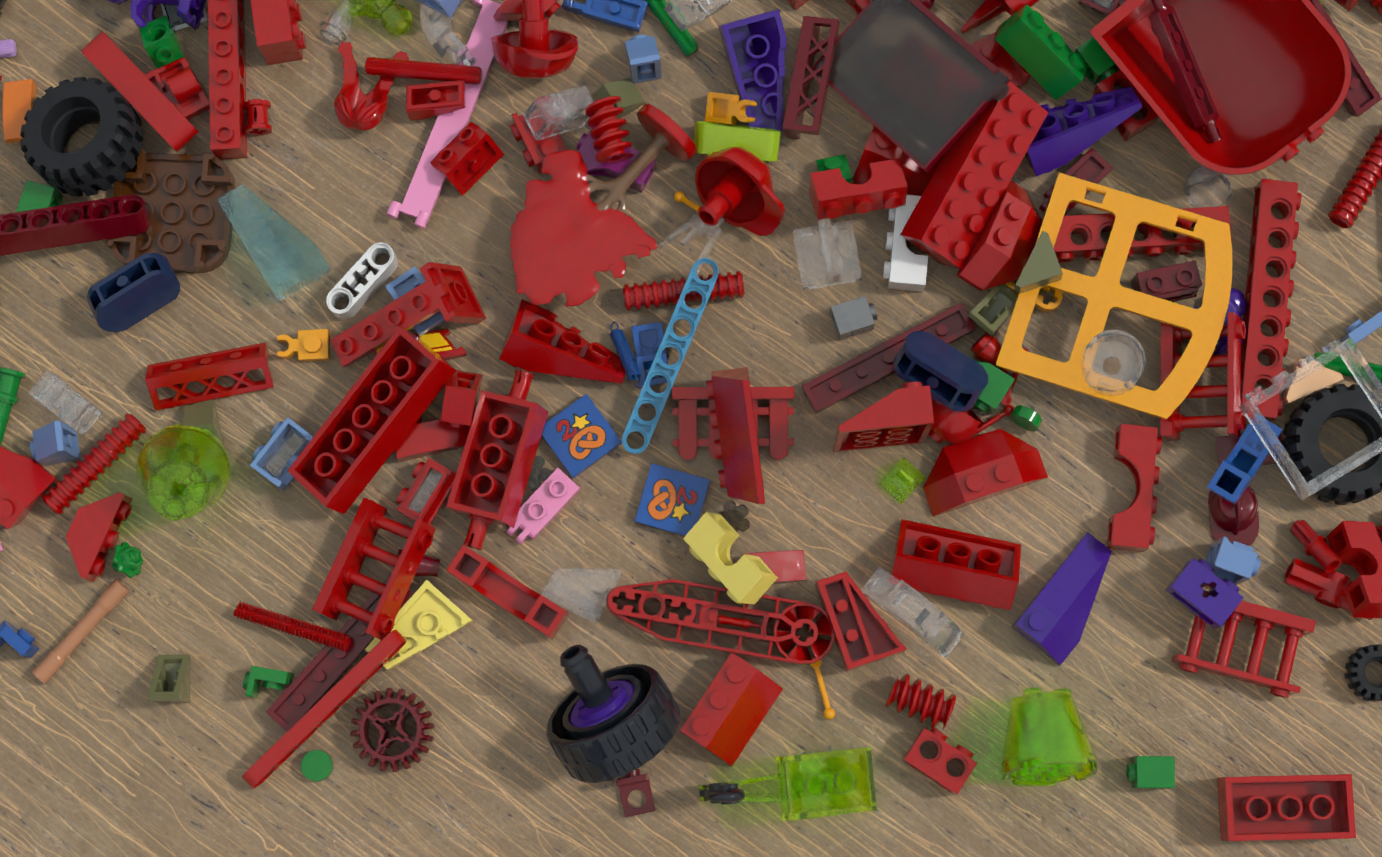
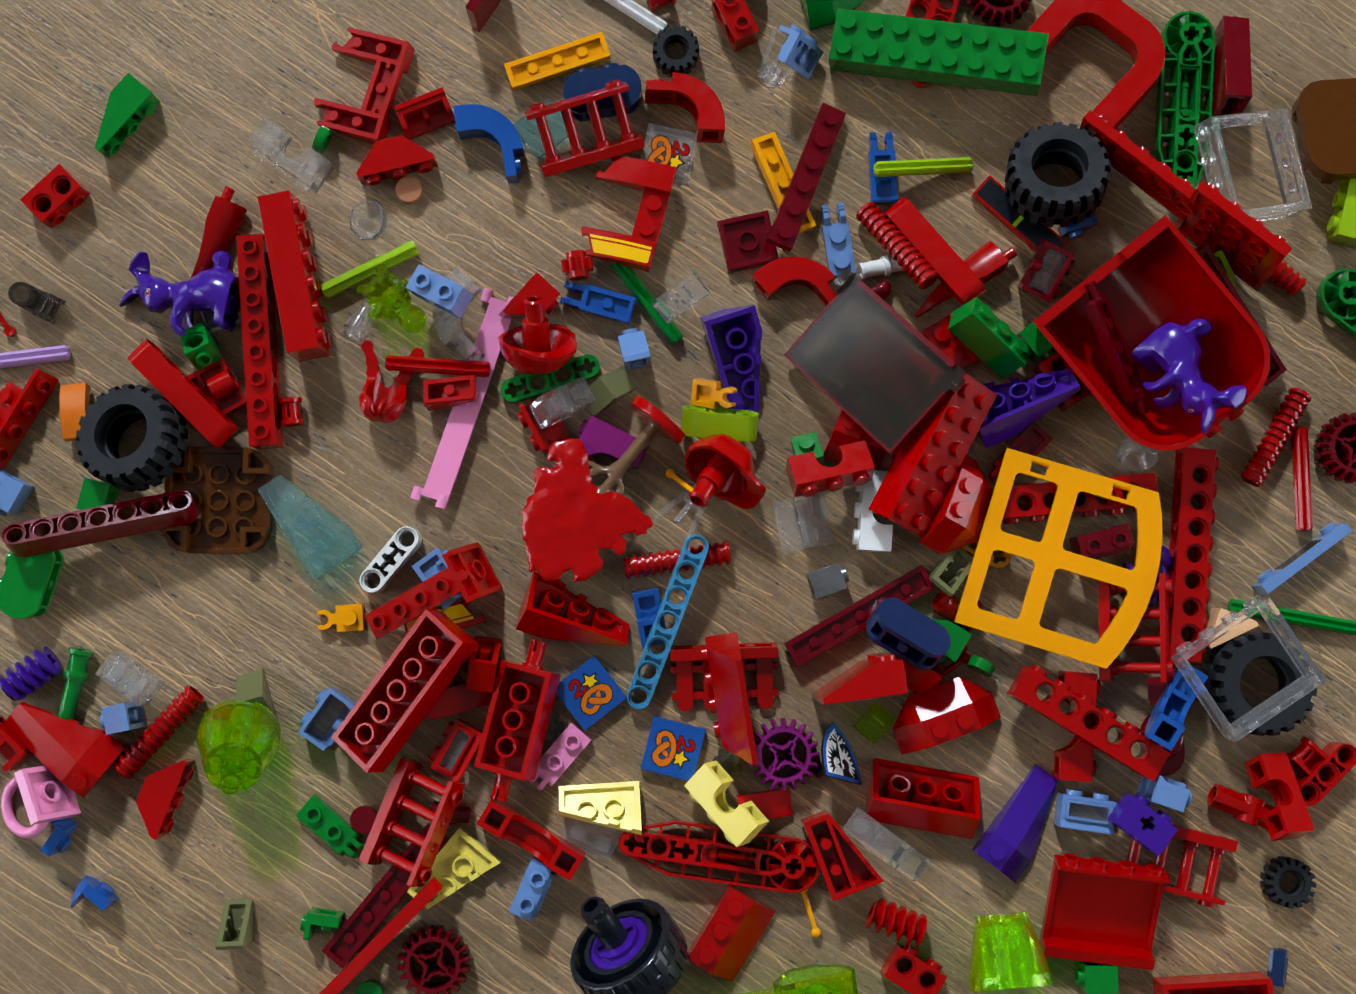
camera: 15 degrees left, 5 degrees up
(56, 657) = (134, 906): nougat piece -> none
(127, 560) = (192, 818): green plant -> none
(133, 292) = (186, 578): dark blue brick -> none
(207, 366) = (255, 644): red fence -> none
(280, 575) = (330, 826): none -> green hinge
(293, 626) = (342, 874): red axle -> none
(317, 568) = (363, 818): none -> dark red tile
(467, 157) = (480, 444): red bracket -> none
(507, 650) = (532, 890): none -> medium blue window
(547, 86) = (550, 378): none -> green beam
(591, 558) = (604, 804): none -> light yellow wing
(607, 132) = (606, 421): red piece -> none
(625, 354) = (627, 619): blue piece -> none
(803, 75) = (776, 364): dark red fence -> none
(809, 519) = (789, 743): none -> magenta gear
(858, 514) = (837, 757): none -> shield
(1040, 268) = (994, 534): olive slope -> none
(1113, 345) = (1076, 622): clear piece -> none
(1141, 584) = (1084, 812): none -> medium blue window
(1158, 693) = (1102, 911): none -> red panel
(1217, 509) = (1146, 763): none -> red brick
(1248, 75) = (1178, 353): none -> dark purple animal
(1315, 546) = (1235, 773): red axle -> none
(1363, 771) = (1277, 966): none -> dark blue piece

